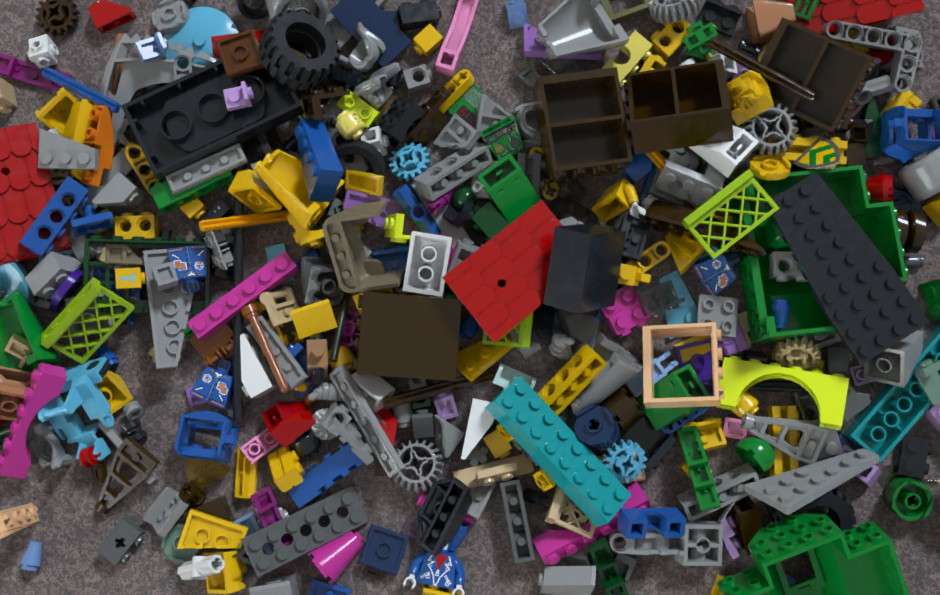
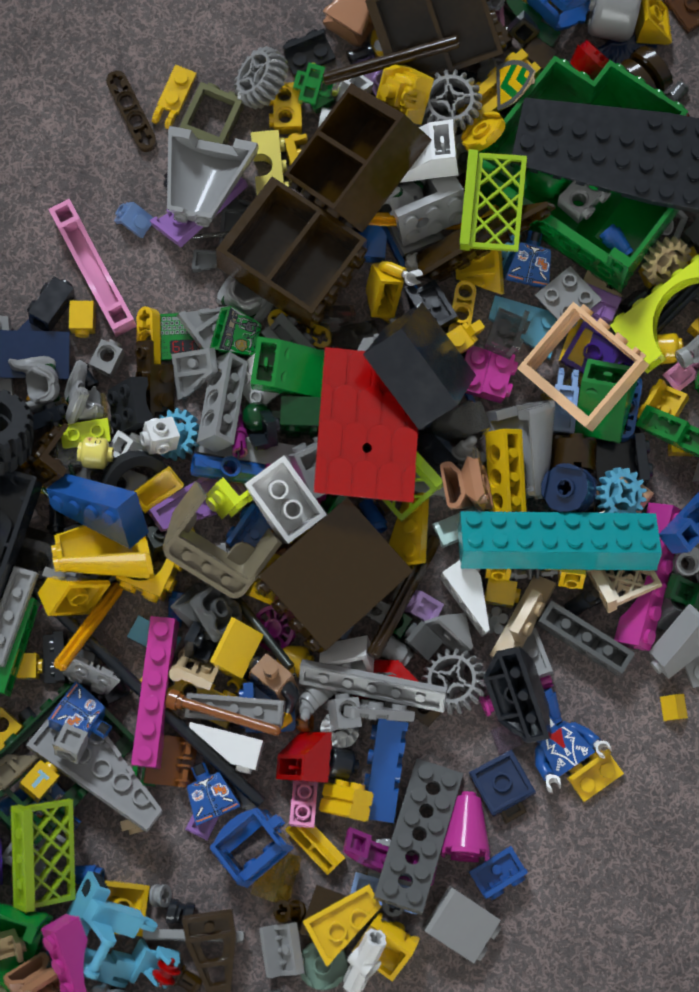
camera: 45 degrees left, 5 degrees down
(295, 293) = (196, 646): none -> black bracket
(396, 153) = (160, 435): none -> white brick
(540, 364) = (467, 487): none -> nougat piece

